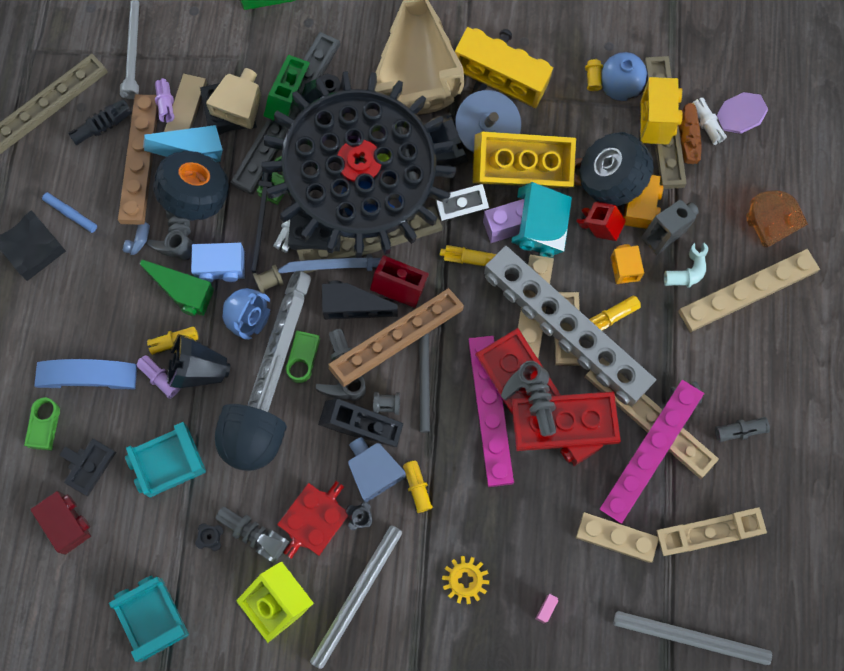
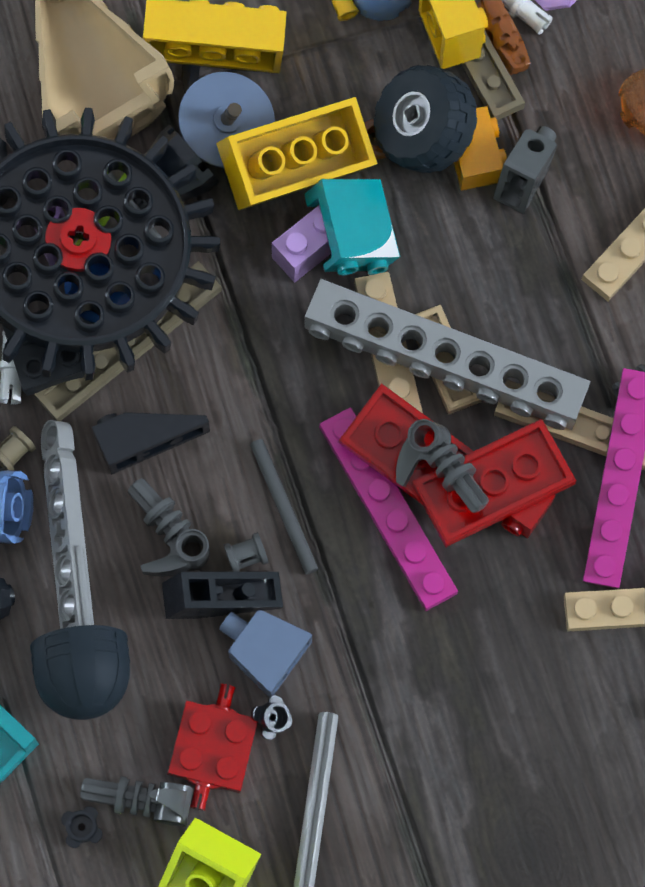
camera: 25 degrees left, 0 degrees up
(303, 350) = (103, 528): bright green piece -> none
(366, 262) = (141, 374): sand blue sword -> none
(395, 337) = (222, 460): medium nougat plate -> none
(399, 281) = (195, 383): dark red brick -> none
(417, 486) = (333, 647): yellow axle -> none
(458, 588) = (461, 747): yellow gear -> none
(463, 202) = (237, 242): white brick -> none
(464, 255) = (270, 313): yellow piece -> none
(547, 608) = (567, 736): bright pink tile -> none
(603, 221) = (435, 195): red brick -> none
(615, 313) = (494, 322): yellow piece -> none
(627, 264) = (489, 242): light orange brick -> none
(690, 276) = (579, 225): light aqua piece -> none

